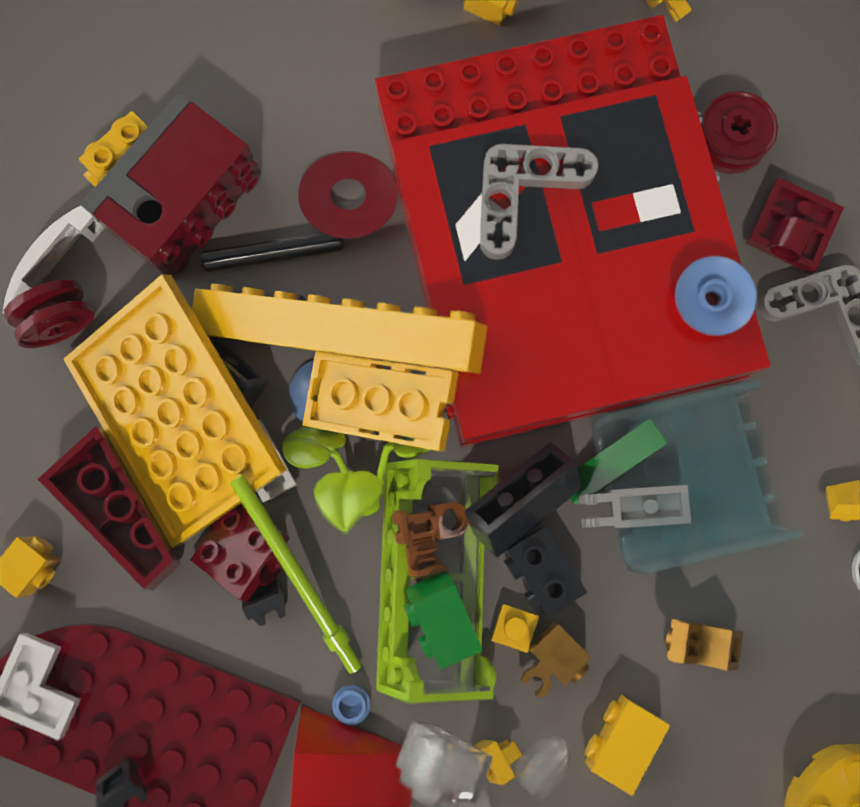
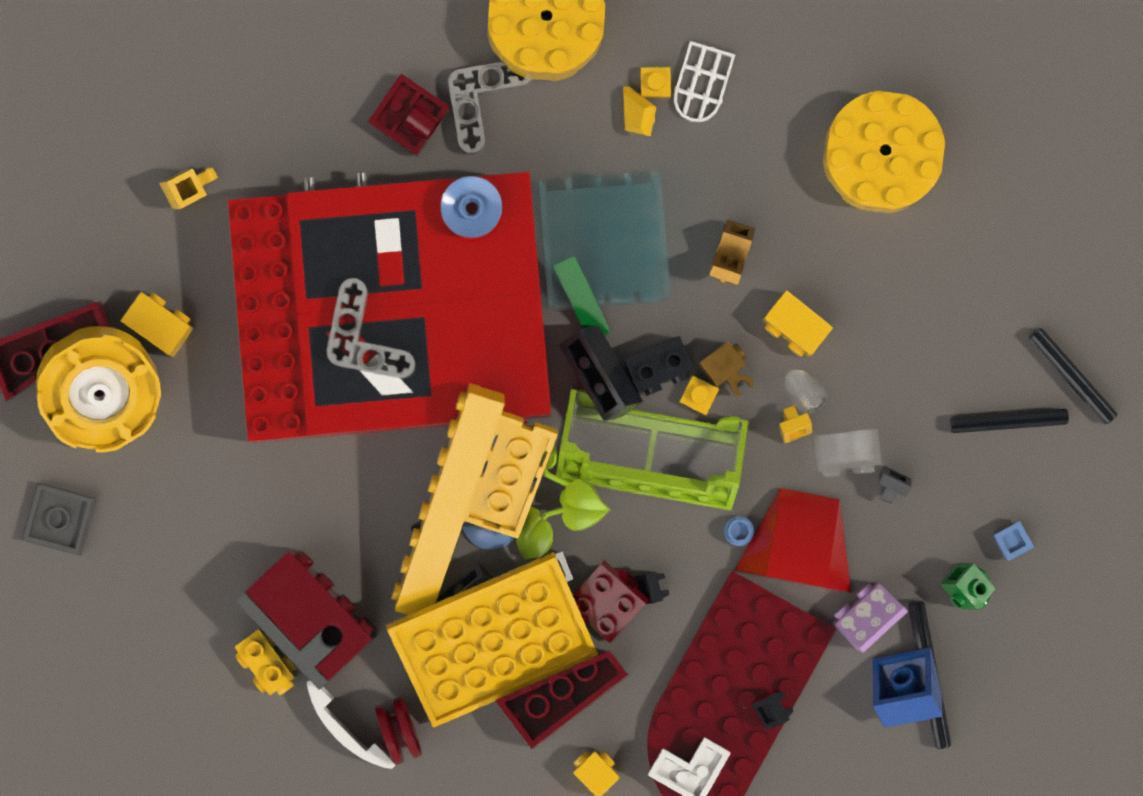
camera: 85 degrees left, 5 degrees up
(269, 251) = (365, 541): black axle -> none
(334, 634) = (683, 536): lime bar -> none
(341, 223) = (353, 483): dark red sticker -> none
(415, 529) = (619, 457): dark orange piece -> none
(441, 766) = (790, 466): clear brick -> none
(443, 619) = (683, 450): green brick -> none
(641, 507) = (620, 283): light grey hinge -> none
(738, 131) = (308, 140): dark red wheel -> none

